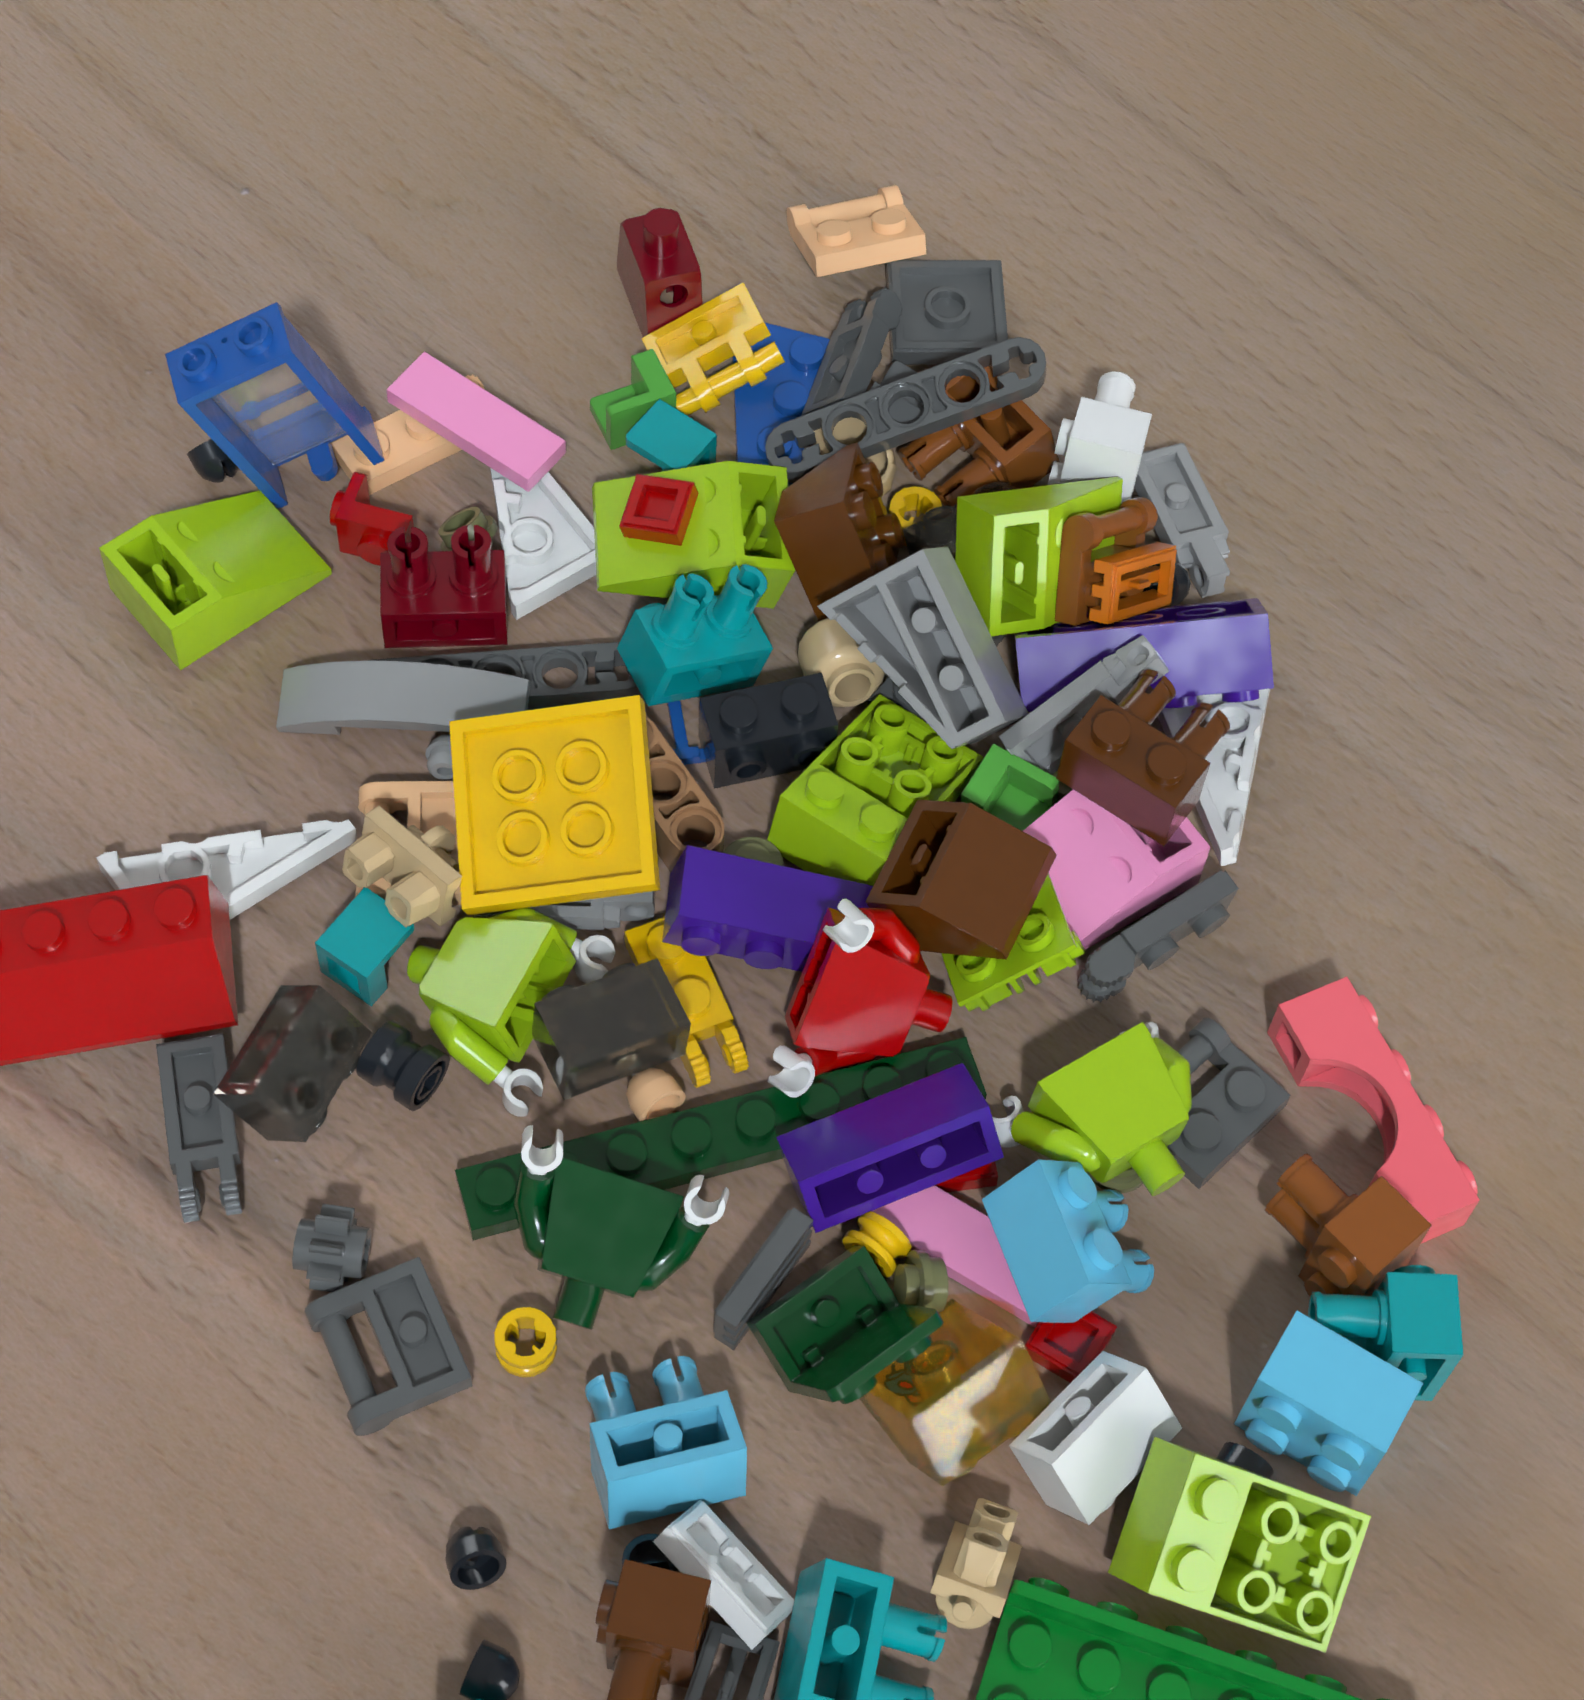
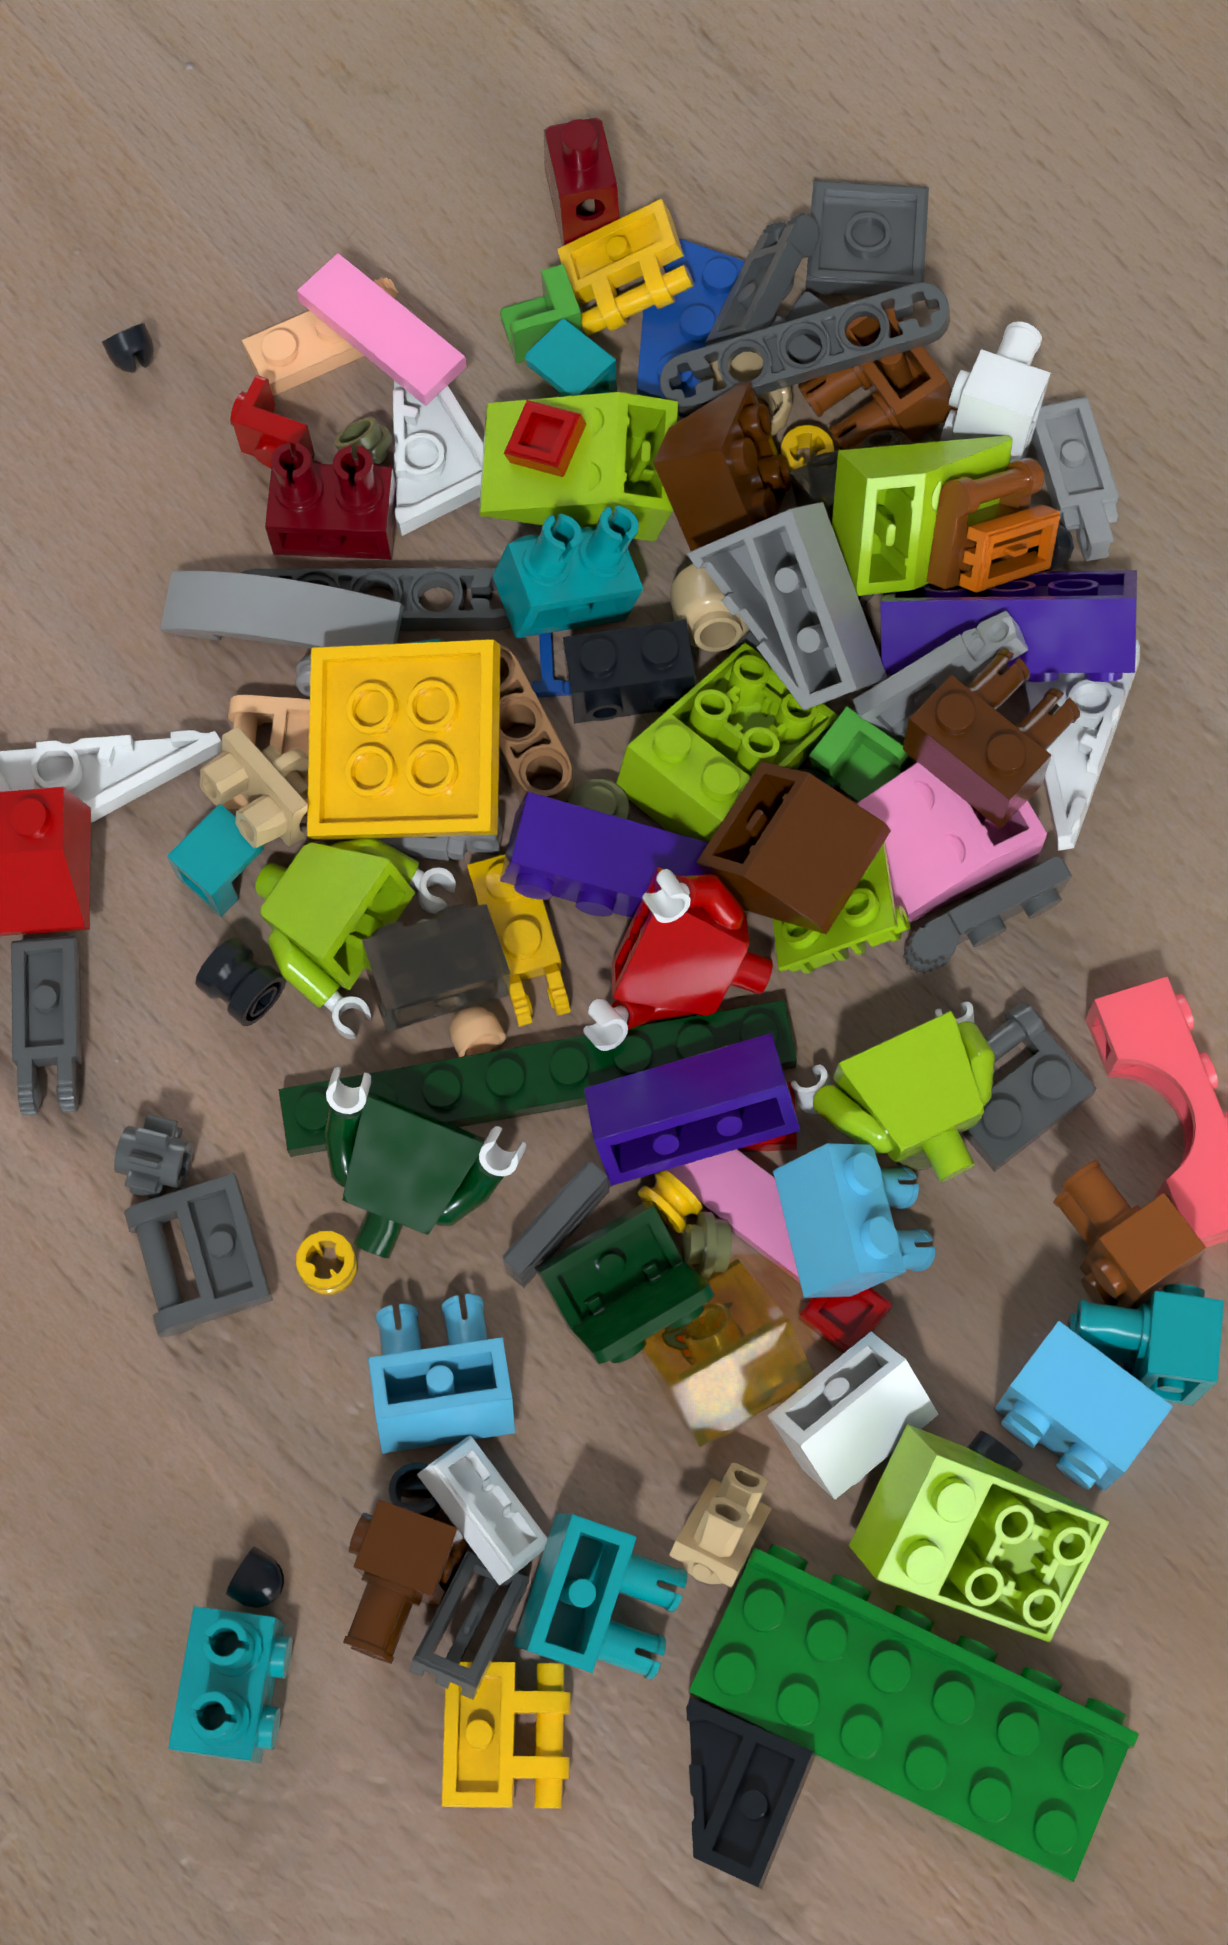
camera: 15 degrees right, 10 degrees up
(209, 571) = (112, 465): lime slope -> none
(268, 399) = (171, 302): blue door -> none
(293, 1063) = (135, 973): clear smoke brick -> none
(485, 1555) = (254, 1467): black hinge -> none
(856, 232) = (786, 148): light nougat plate -> none

